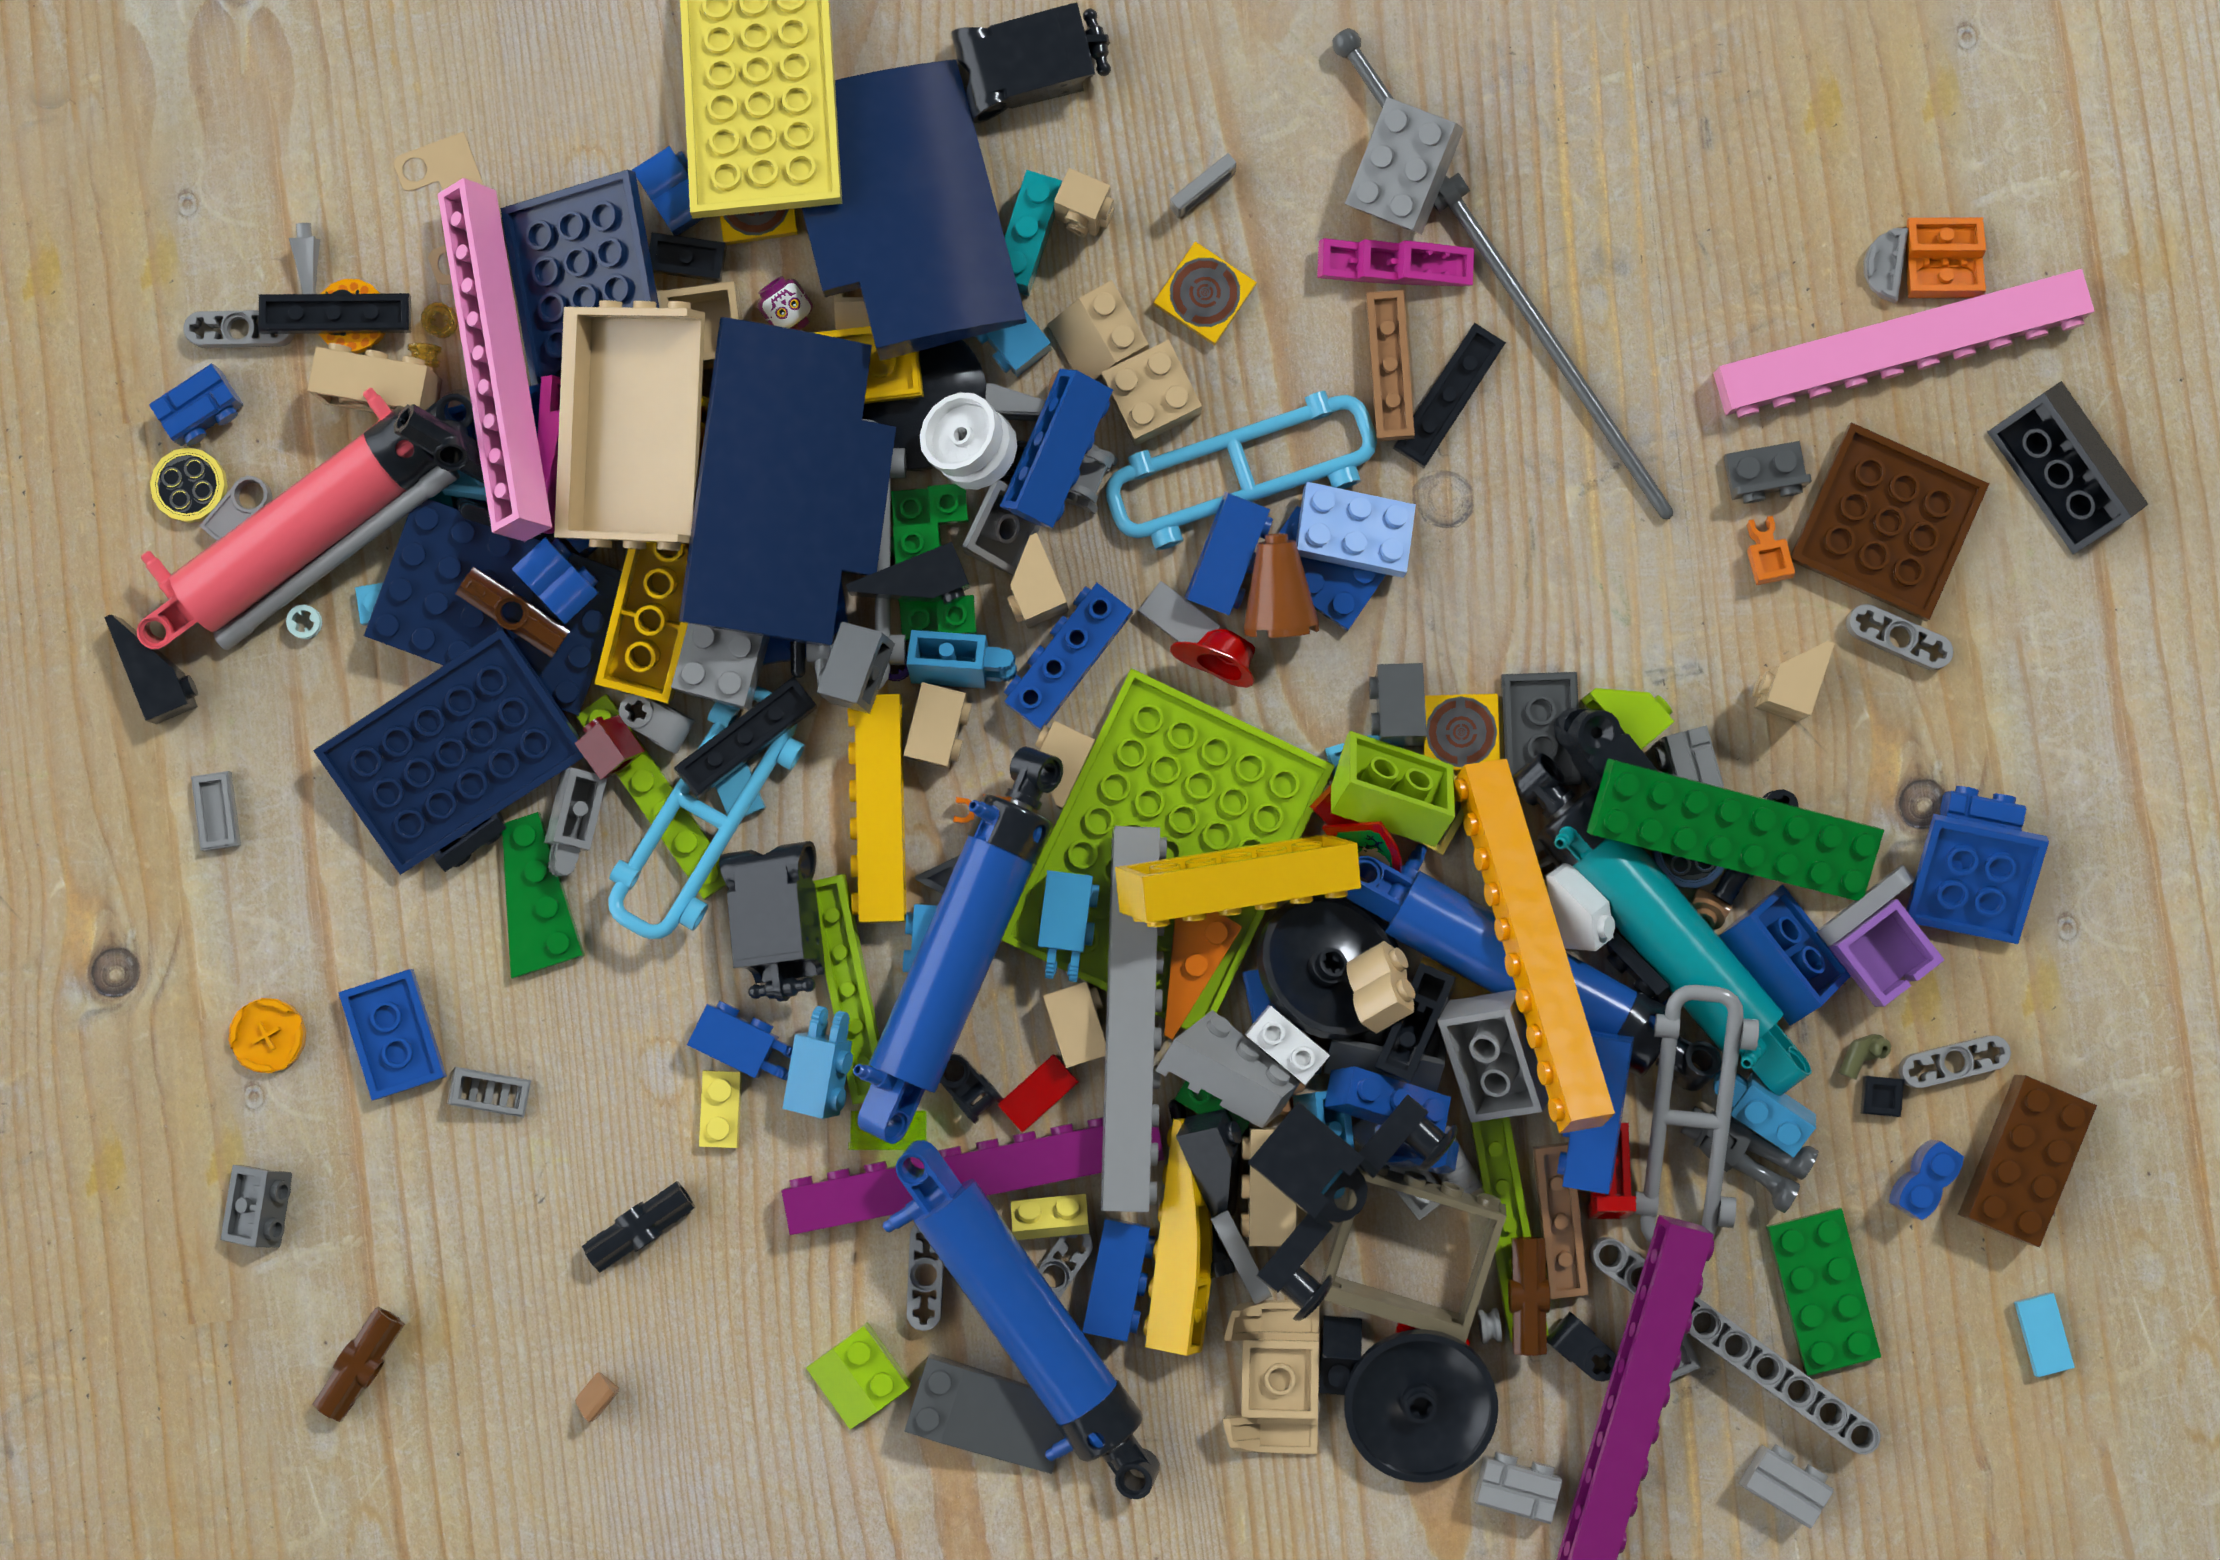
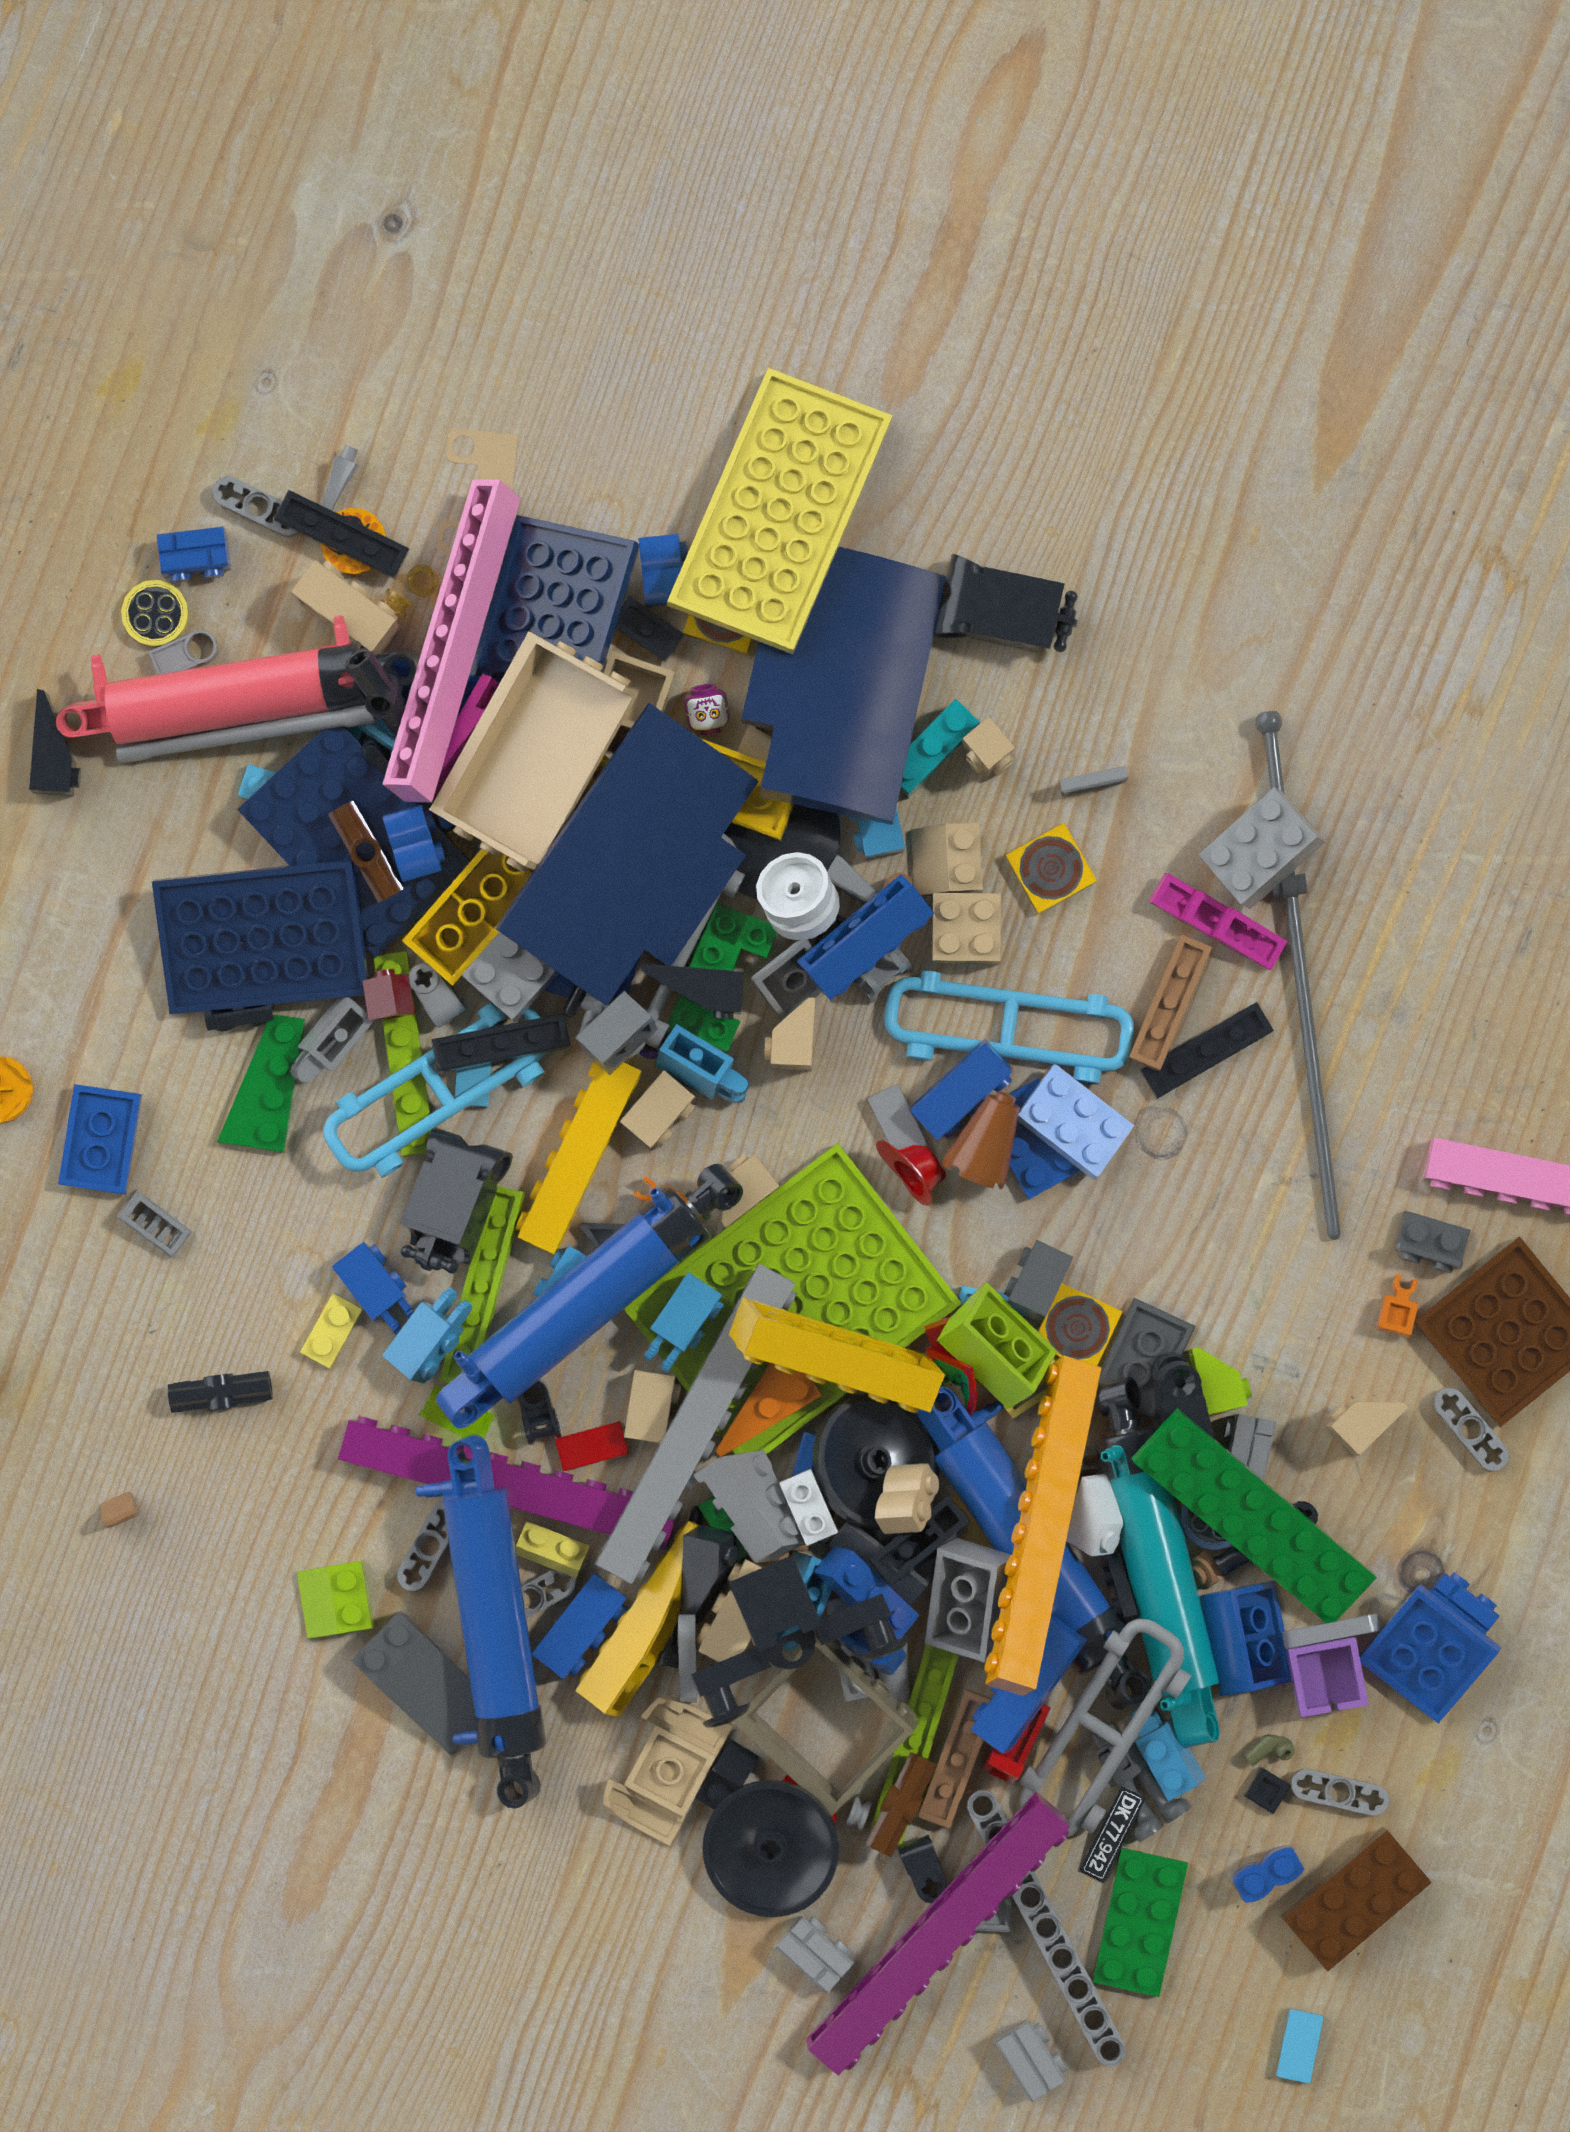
camera: 25 degrees right, 0 degrees up
(216, 811) = (47, 888): light grey tile -> none
(294, 626) = (203, 771): light aqua bush -> none
(1068, 656) = (791, 1108): blue brick -> none
(1752, 1218) = (1112, 1834): none -> black sticker

